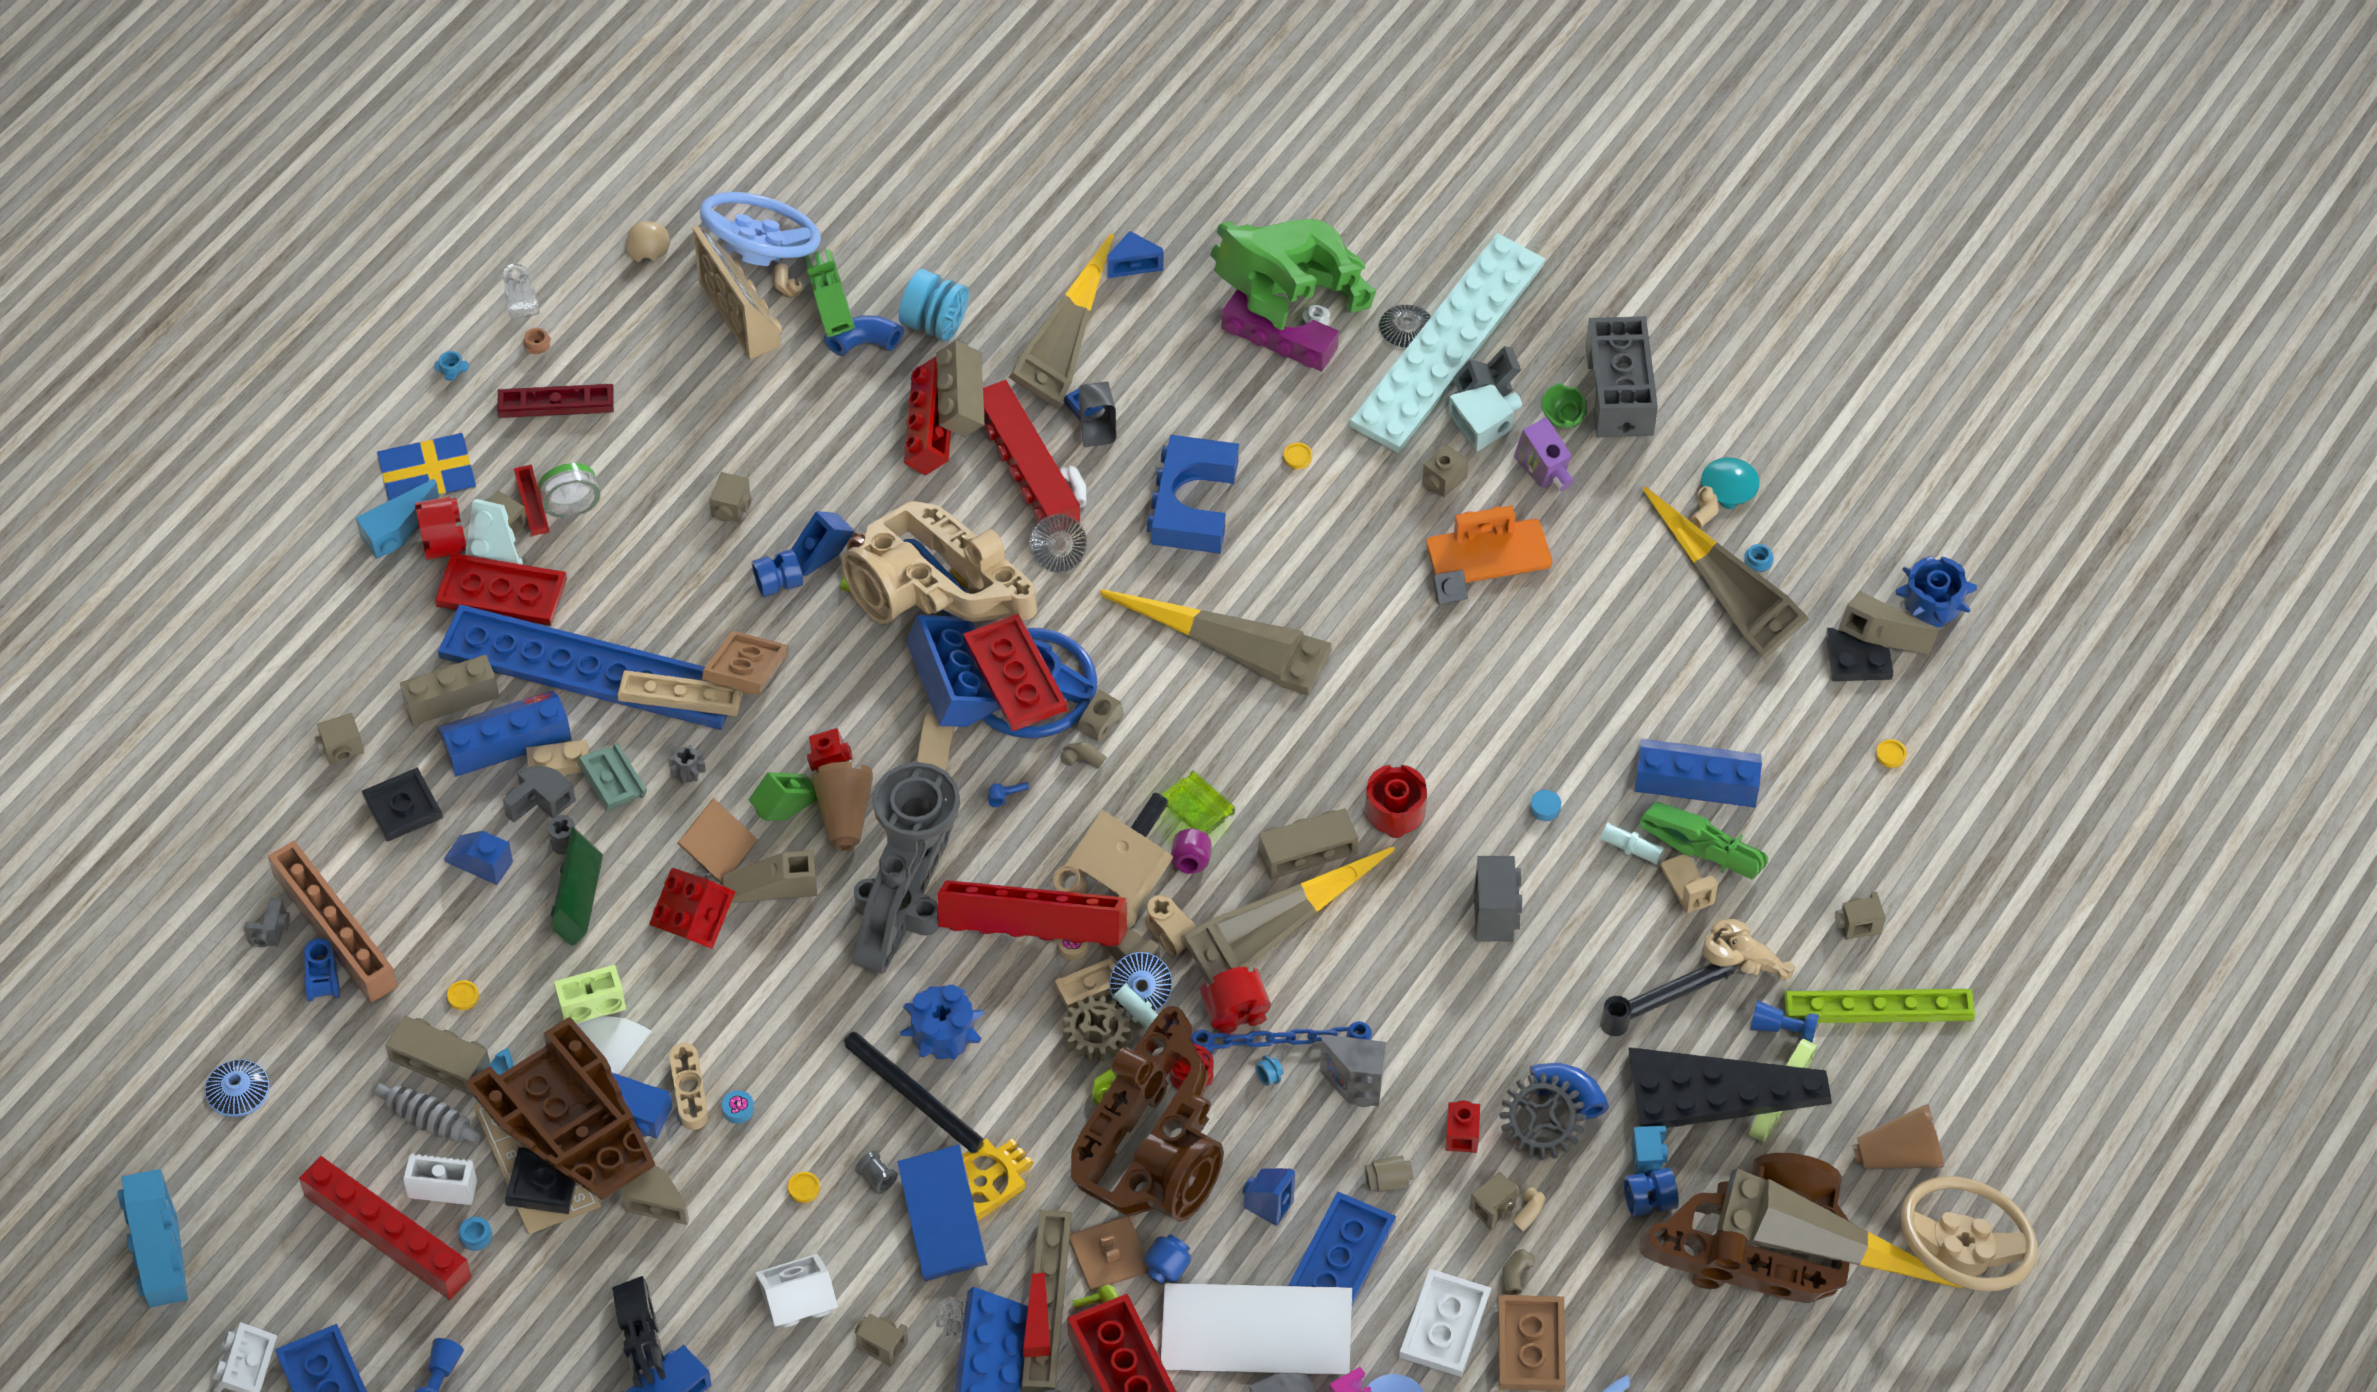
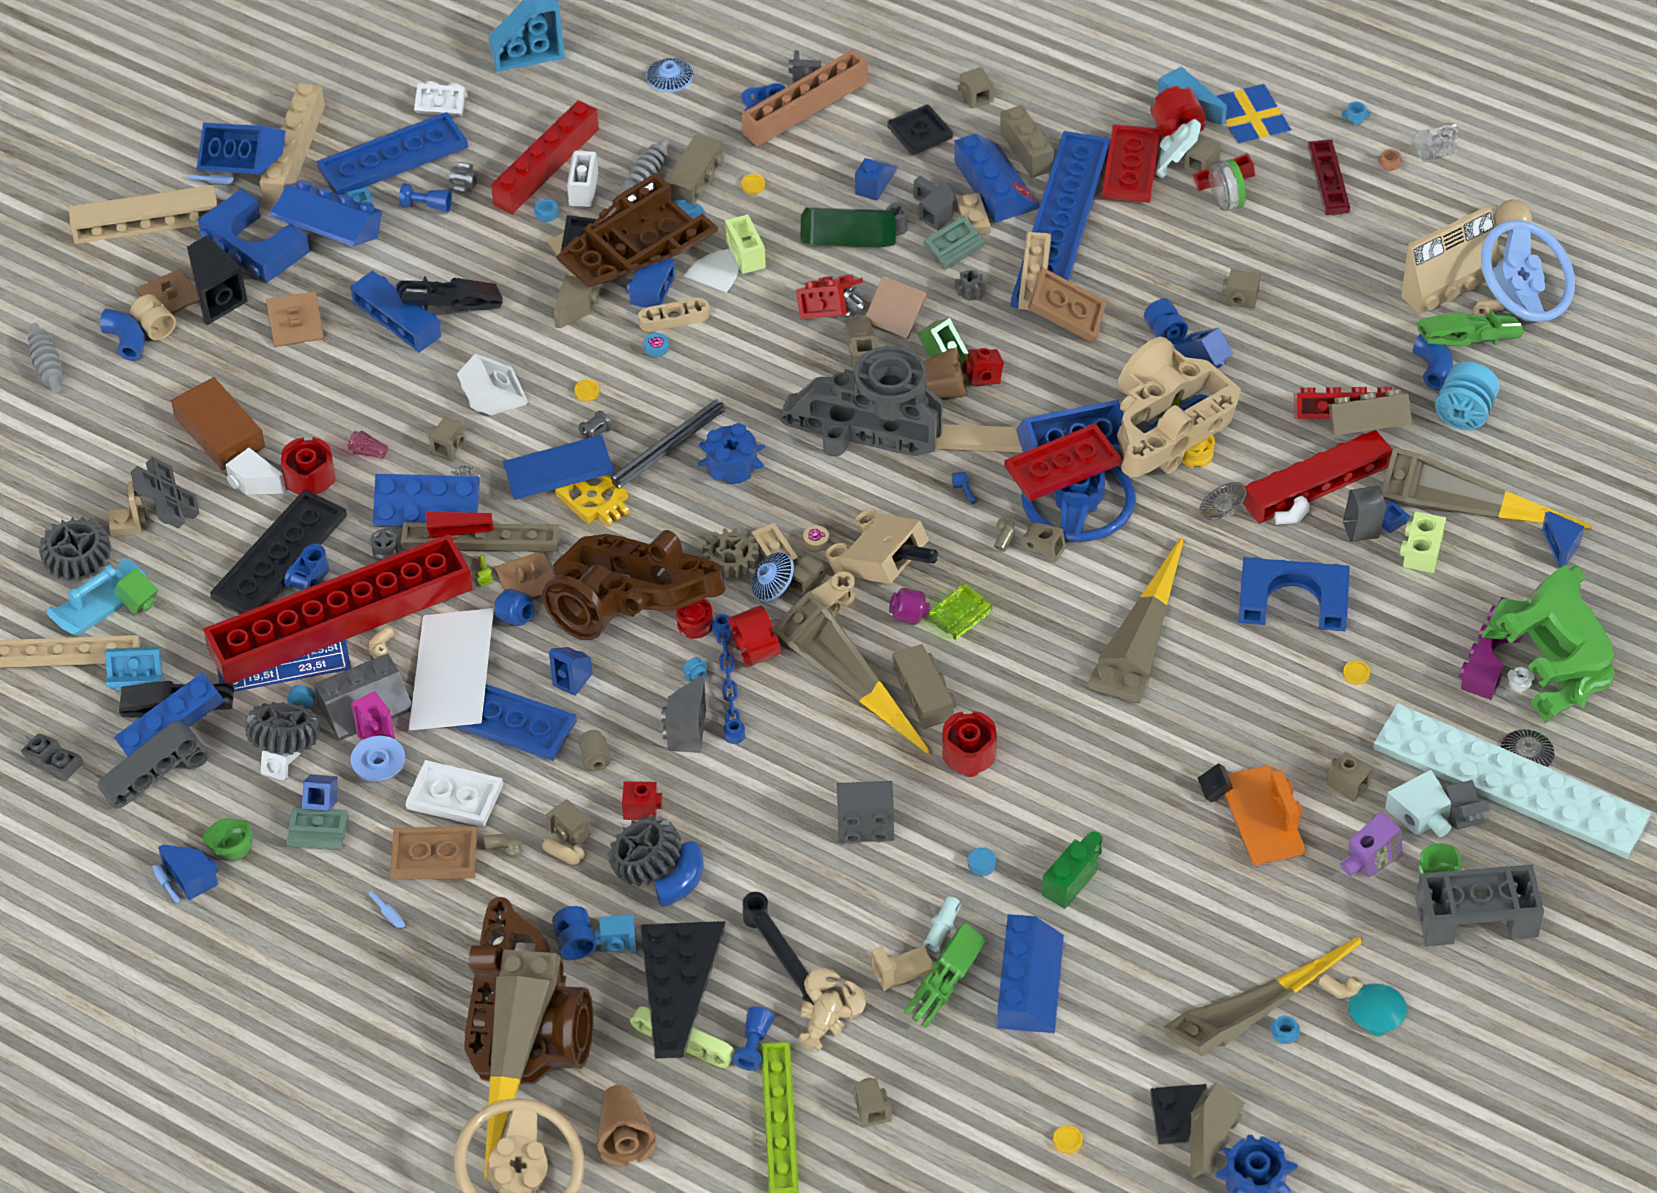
camera: 90 degrees right, 5 degrees down
(407, 1326) = (463, 177): none -> flat silver gear
(1032, 912) = (830, 496): red brick -> none
(1130, 372) = (1423, 543): none -> yellowish green brick
(1135, 1006) = (744, 578): light aqua pin -> none
(1566, 717) = (1072, 870): none -> green hinge

